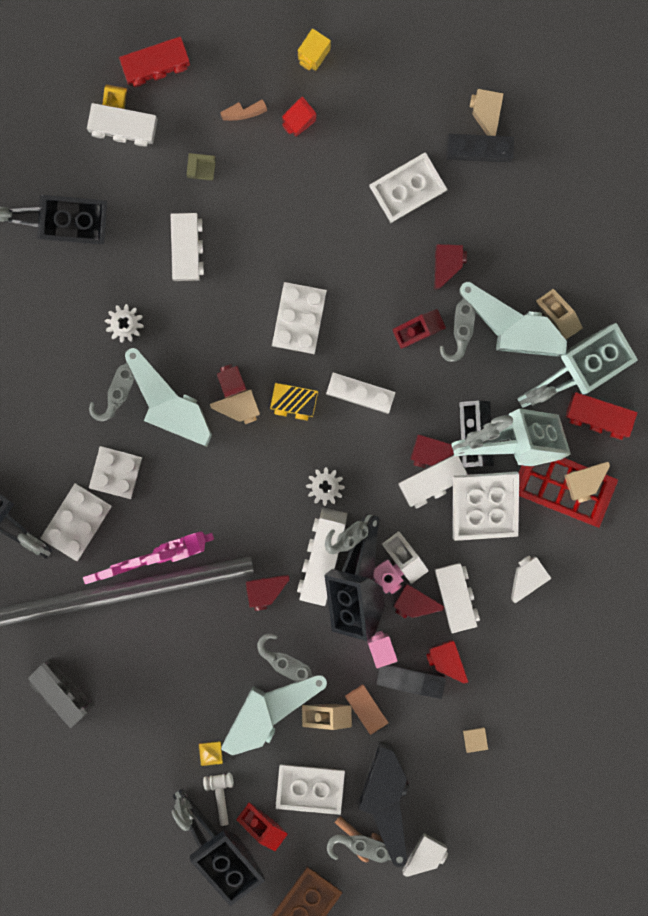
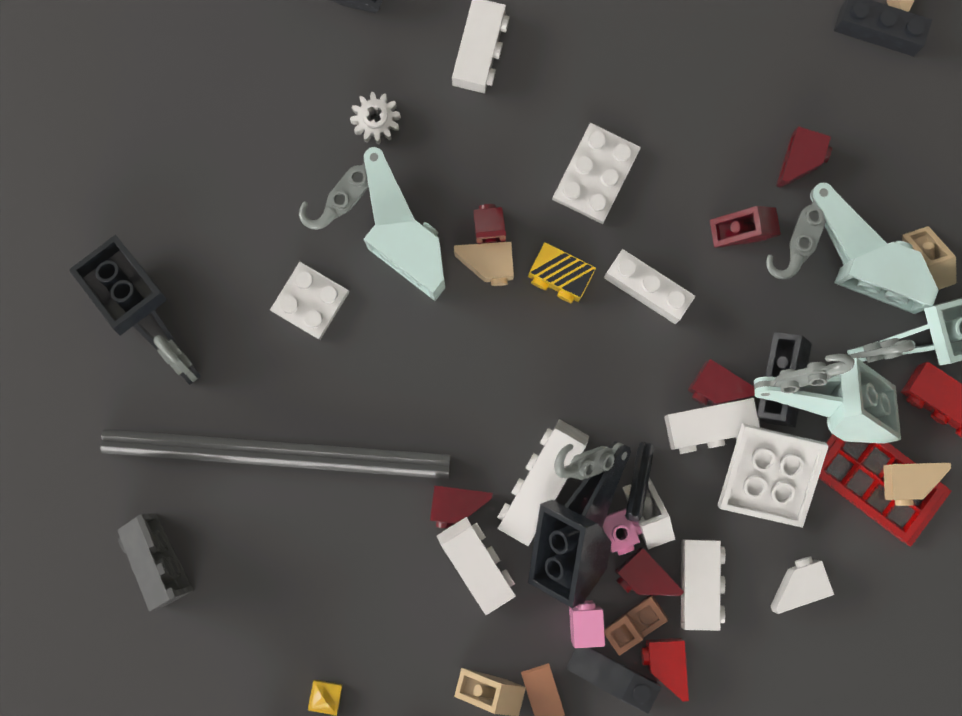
camera: 20 degrees right, 5 degrees down
(76, 522) = (241, 349): white plate -> none
(172, 550) = (347, 413): dark pink piece -> none
(264, 709) = (412, 660): light aqua slope -> none
(292, 629) = (477, 565): none -> white brick
(319, 492) = (580, 387): white gear -> none
(392, 537) = (639, 482): none -> black axle
(408, 187) = (778, 50): white plate -> none
(417, 639) = (635, 625): none -> nougat slope

